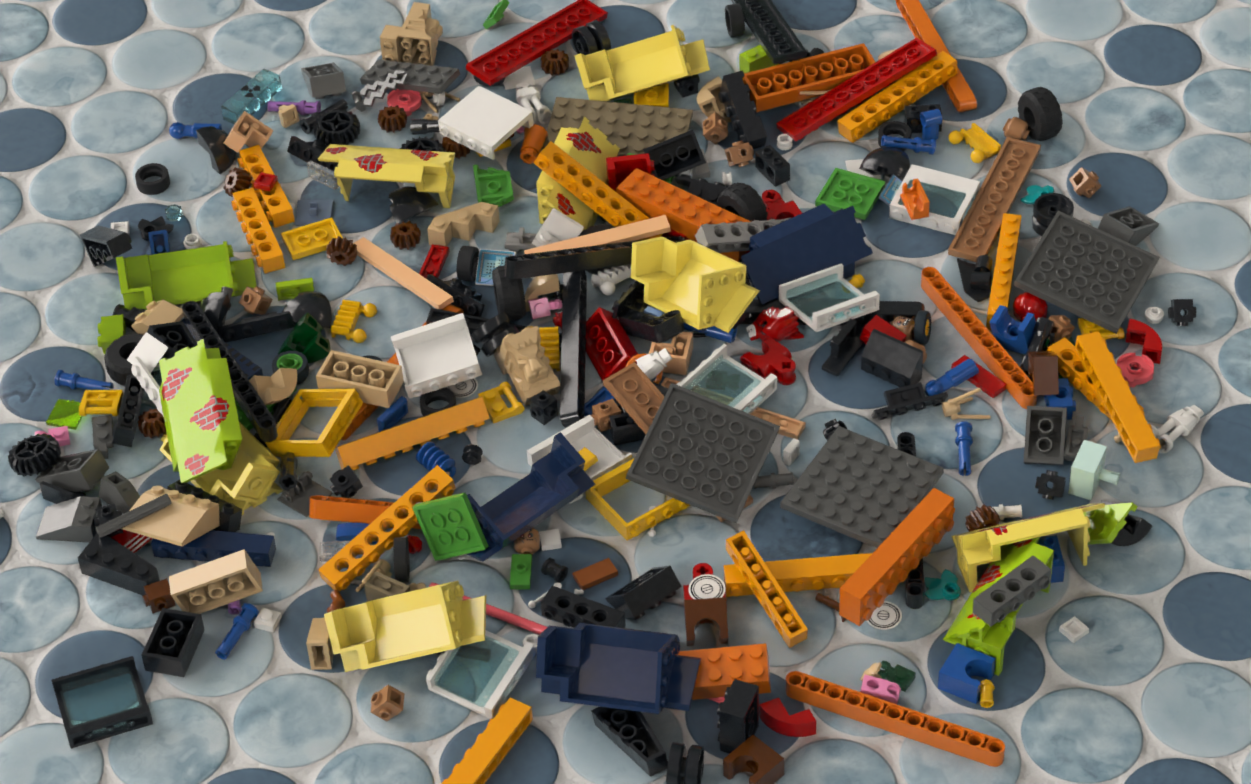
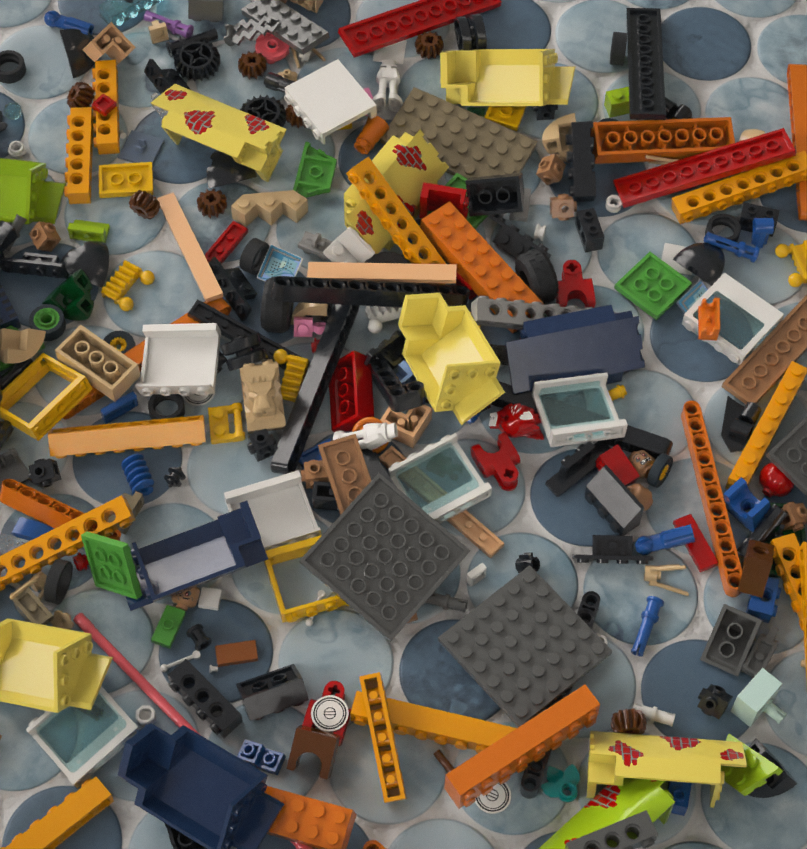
camera: 15 degrees right, 15 degrees up
(589, 457) = (275, 518): yellow tile -> none

